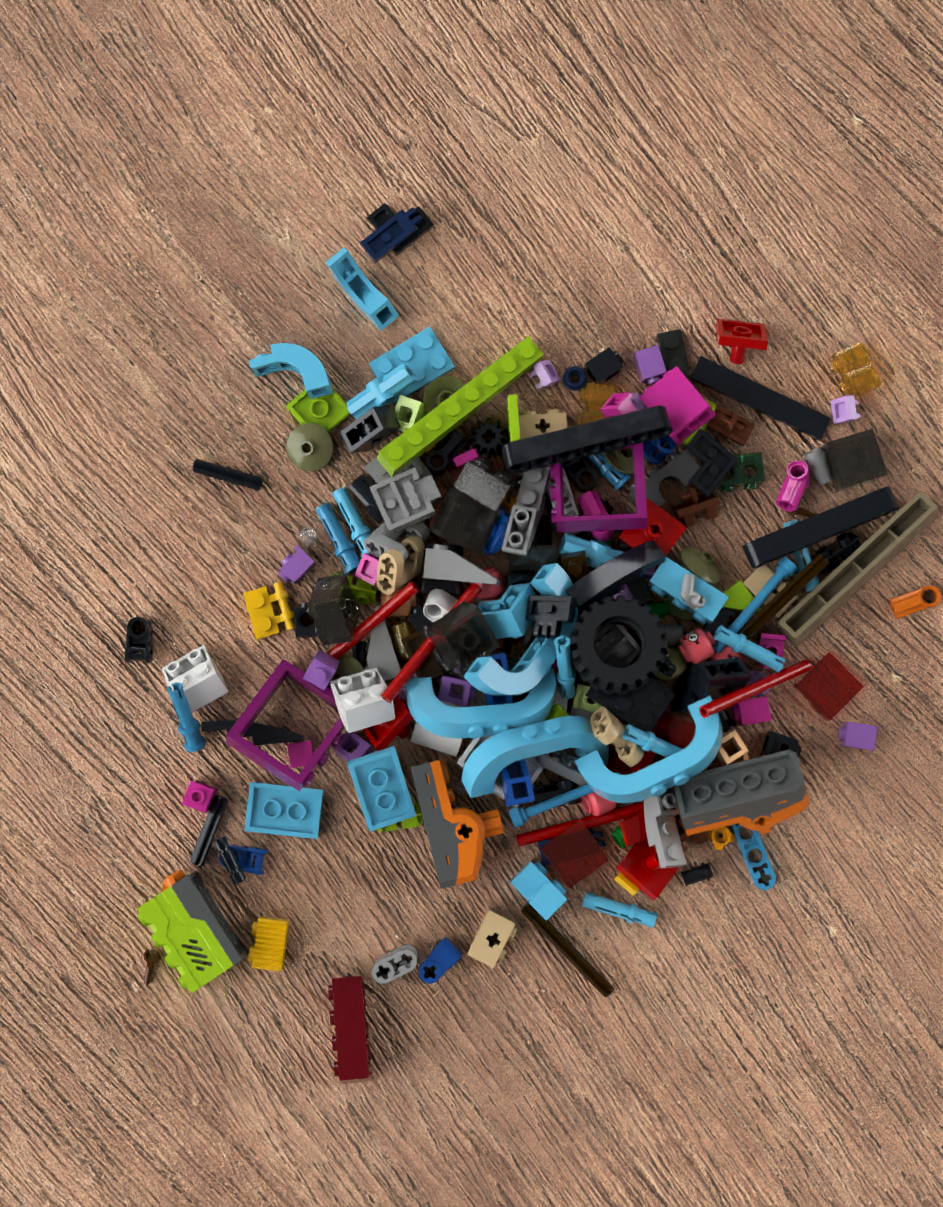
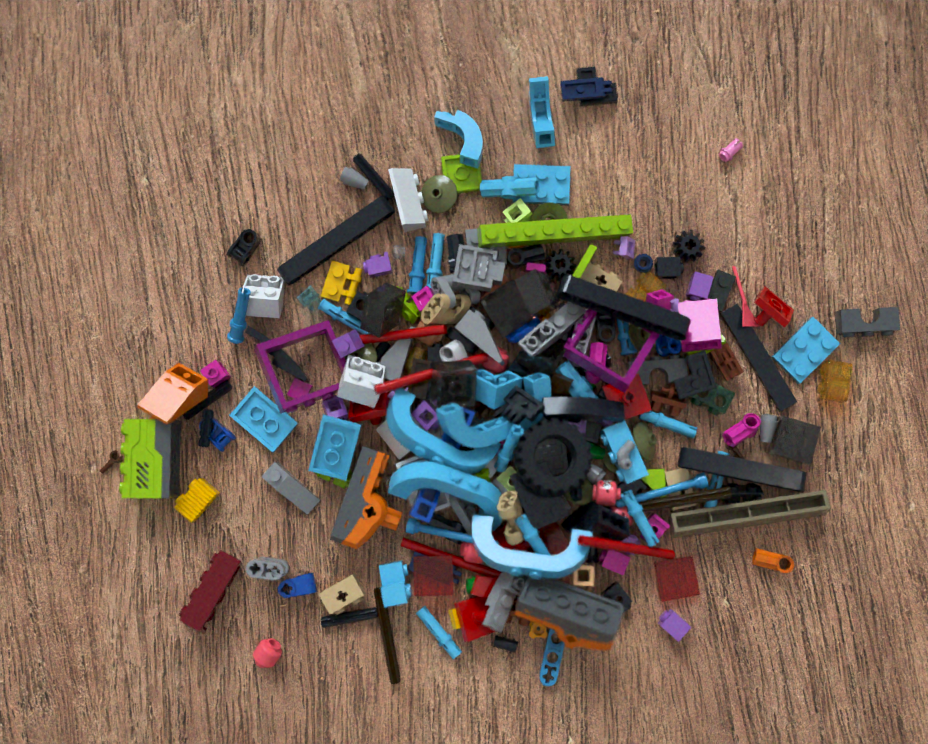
camera: 40 degrees right, 0 degrees up
(172, 846) = (174, 394): none -> slope
(207, 490) = (353, 178): none -> light grey cone
(233, 569) = (336, 240): none -> black beam
(243, 649) = (308, 296): none -> clear light blue tile
(281, 474) = (408, 199): none -> white slope
(293, 645) = (338, 314): none -> medium azure pin
(362, 863) = (290, 487): none -> light grey slope
(370, 429) = (486, 207): black brick -> none
(454, 1053) = (267, 653): none -> coral head
(515, 957) = (349, 617): none -> black axle
(585, 205) = (727, 153): none -> bright pink pin
(615, 321) = (695, 243): none -> black gear
(704, 531) = (661, 420): none -> medium azure pin
(721, 363) = (748, 319): none -> coral piece
(803, 358) = (805, 350): none -> medium azure plate
(830, 299) = (850, 322): none -> dark grey arch
(844, 409) = (810, 402): lavender tile -> none

